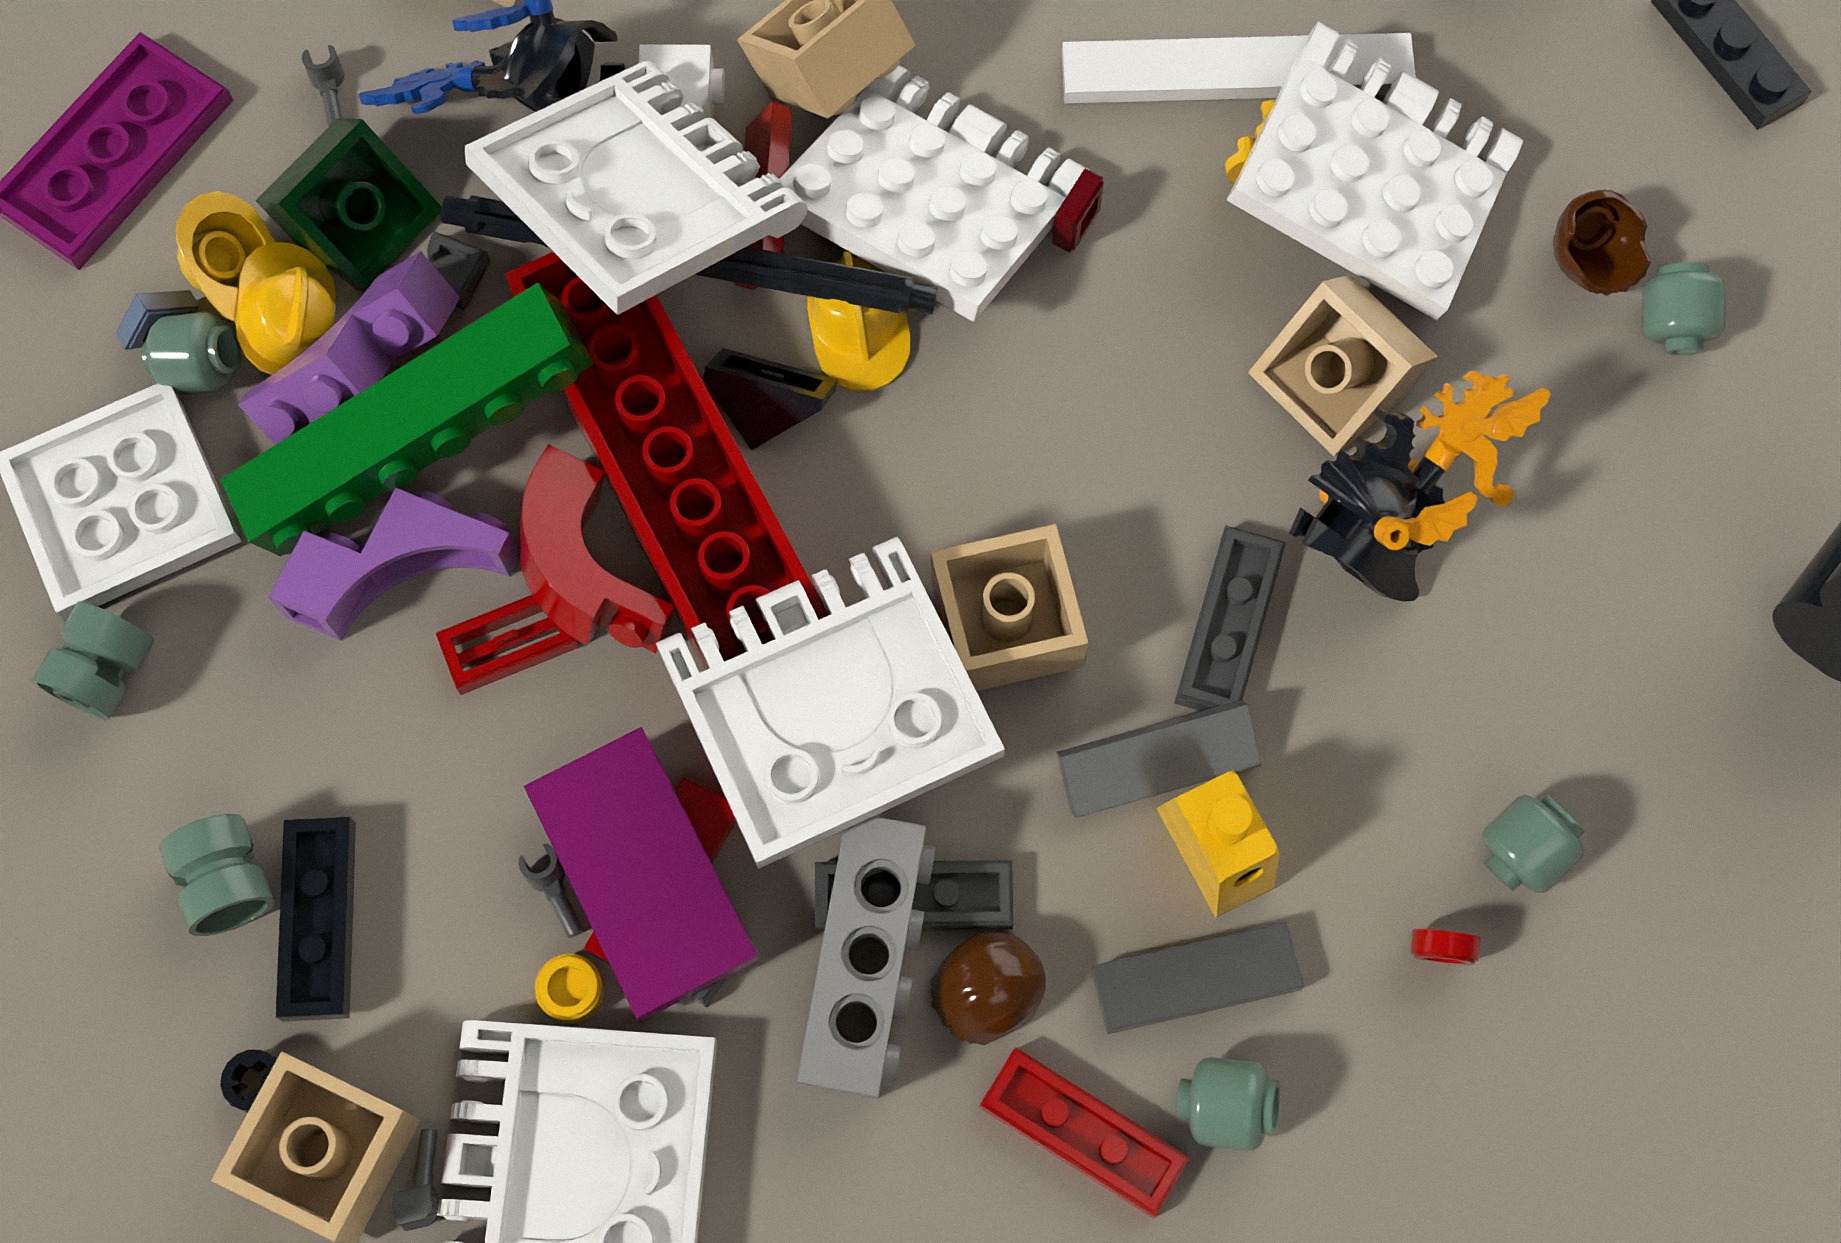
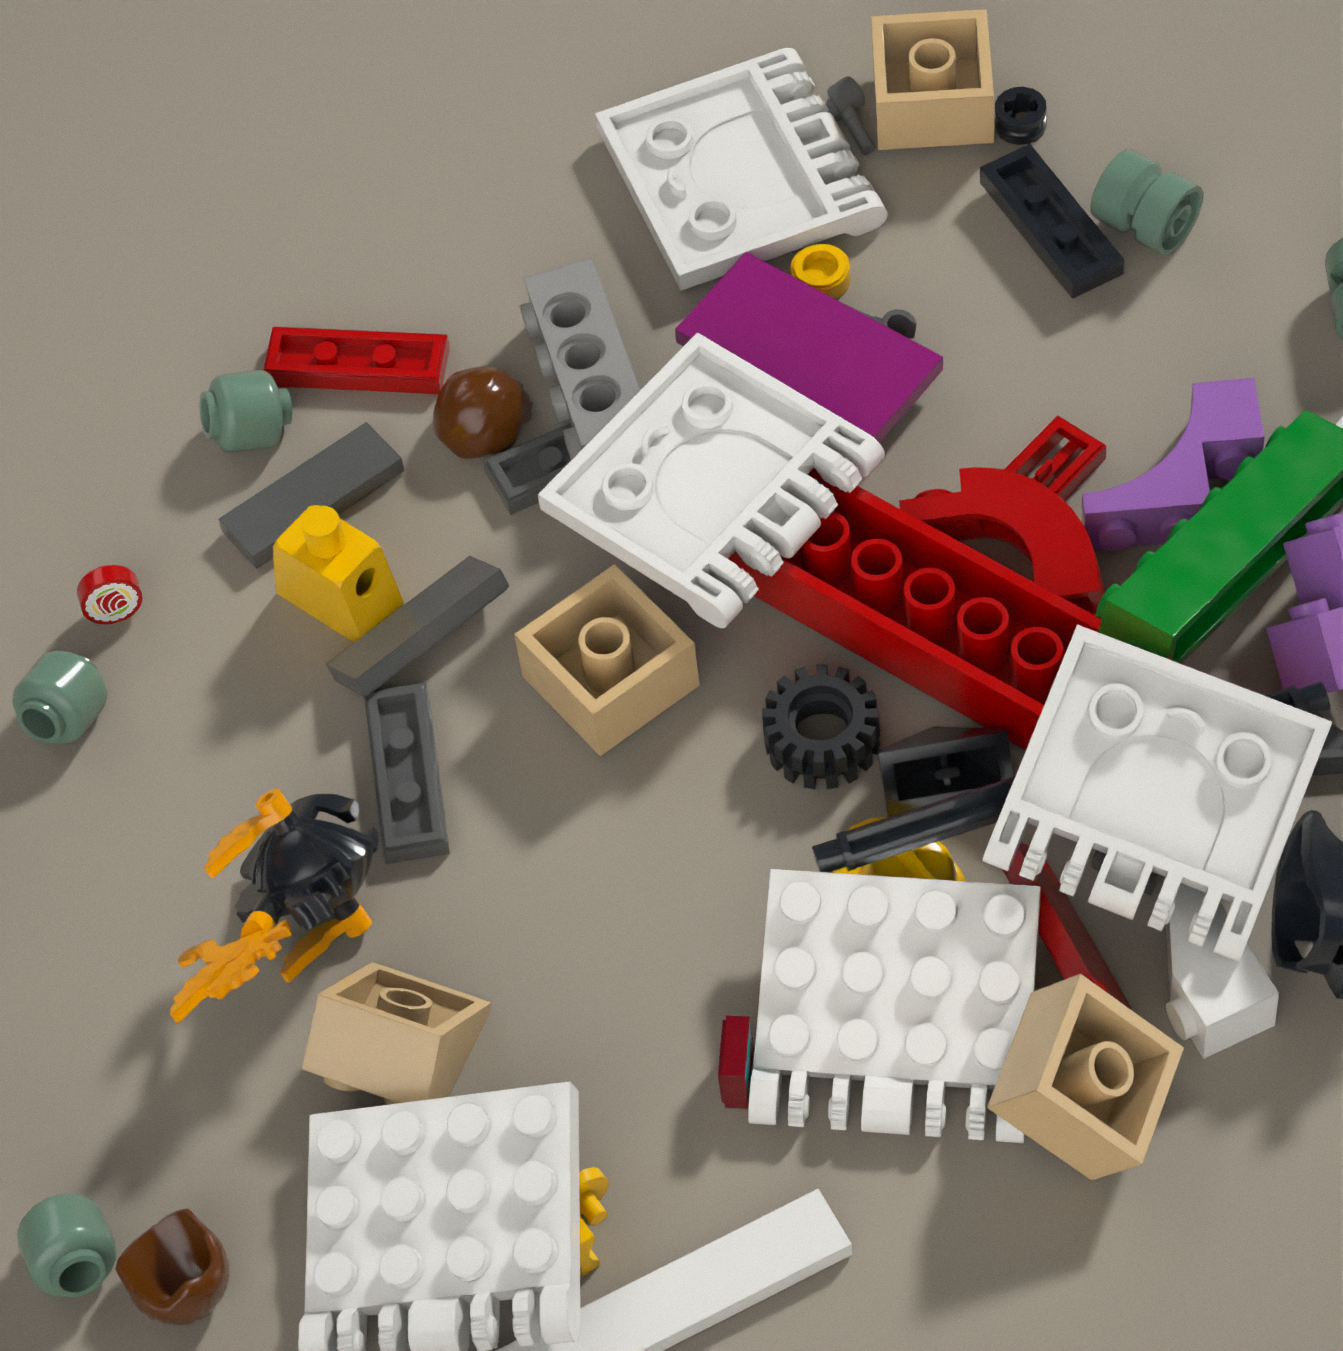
camera: 160 degrees right, 15 degrees down
(850, 439) = (821, 696): none -> black tyre

